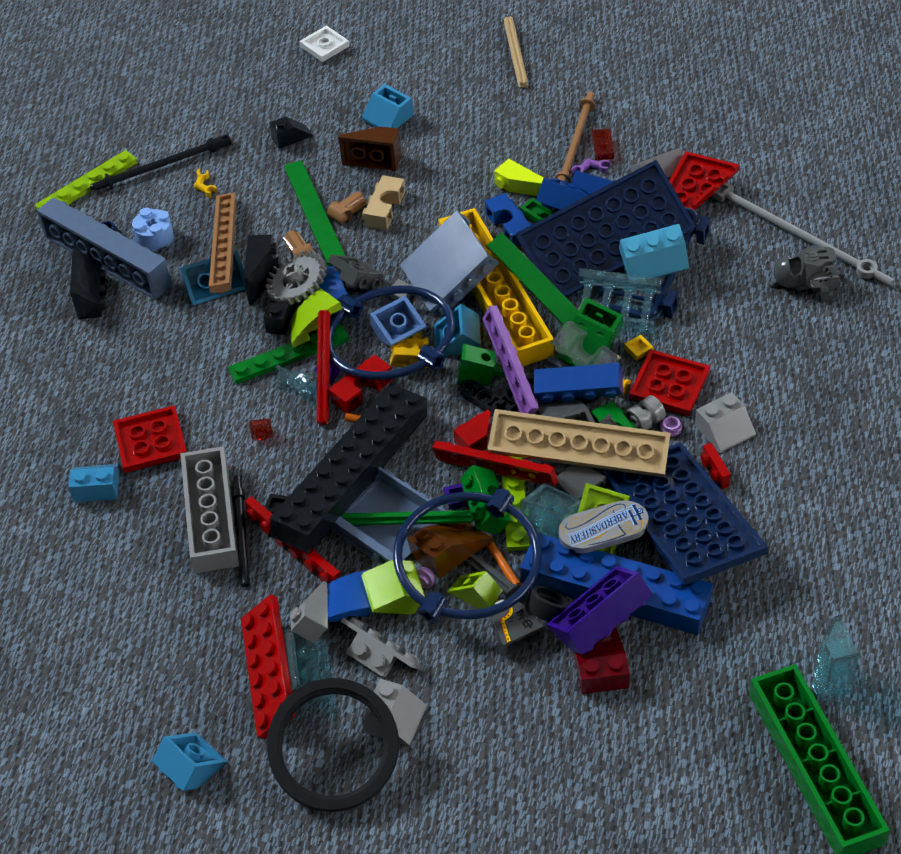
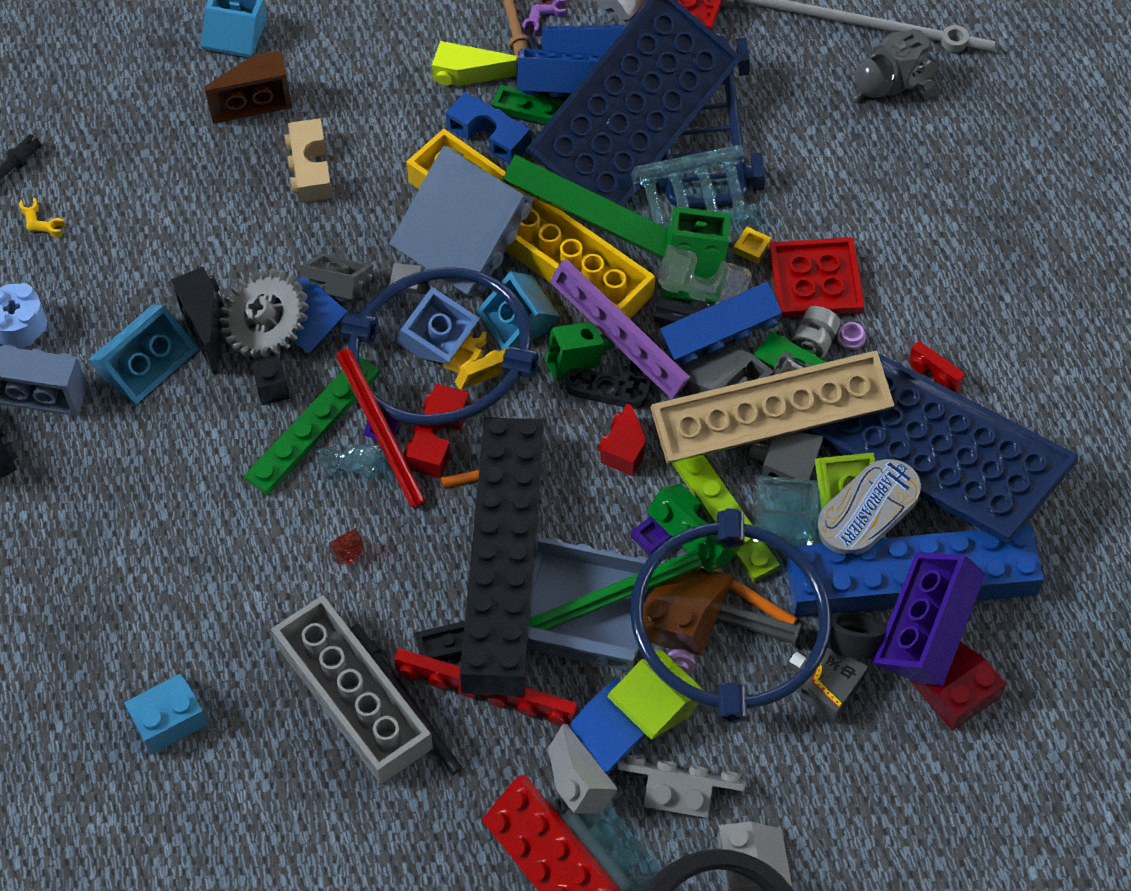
camera: 30 degrees left, 10 degrees up
(149, 439) = (202, 621): red plate -> none
(223, 243) = (141, 303): medium nougat plate -> none
(288, 131) = (113, 102): black slope -> none
(295, 243) = (232, 266): medium nougat piece -> none
(306, 316) = (315, 363): lime slope -> none
(313, 210) = (221, 207): green tile -> none
(345, 209) = (261, 189): medium nougat piece -> none
(476, 589) = (753, 651): lime slope -> none
(501, 464) = (690, 472): red plate -> none
(655, 252) = (712, 112): medium azure slope -> none
(725, 422) = (913, 306): light grey slope -> none

